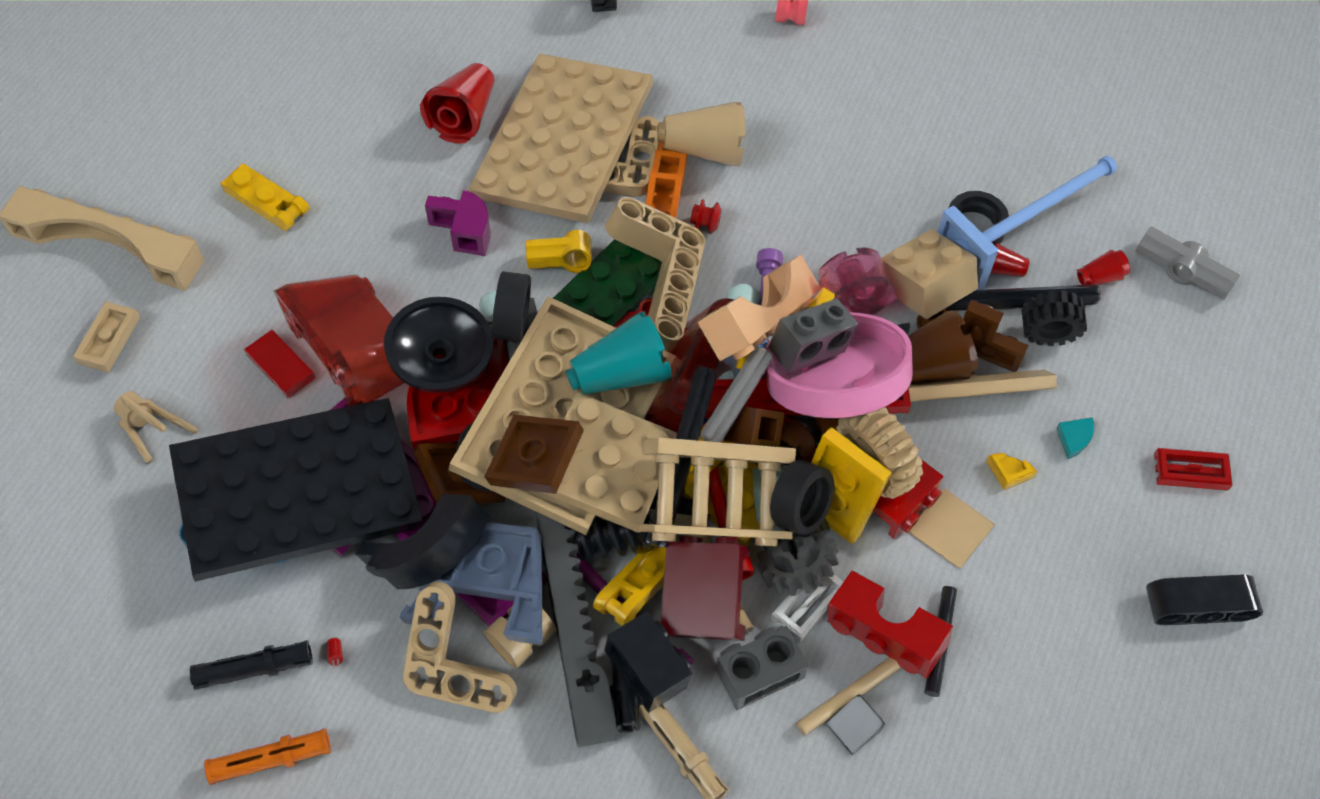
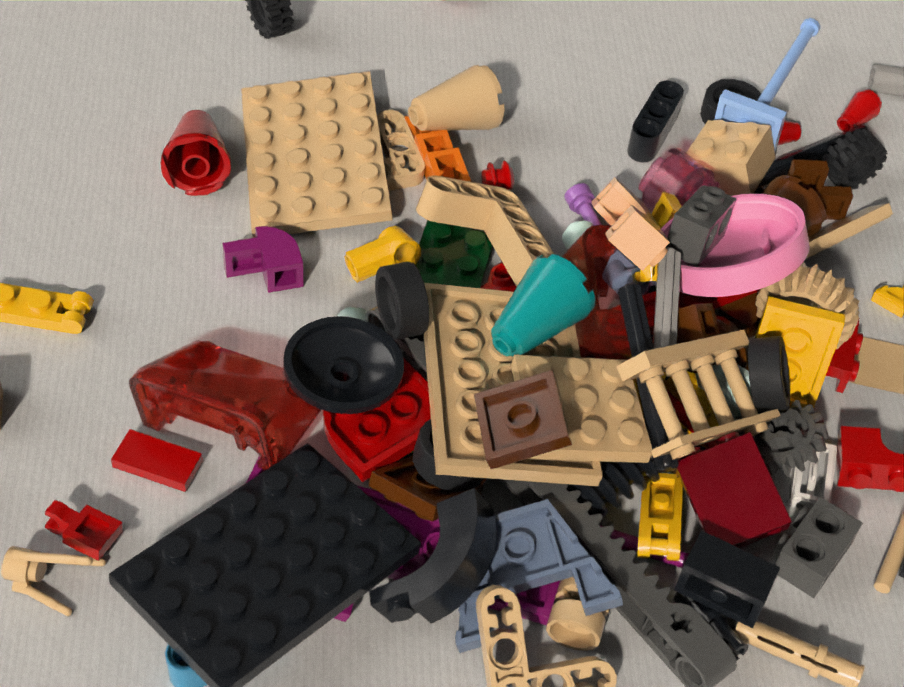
camera: 30 degrees left, 10 degrees down
(192, 401) = (86, 531): none -> red plate
(889, 210) = (655, 121): none -> black beam

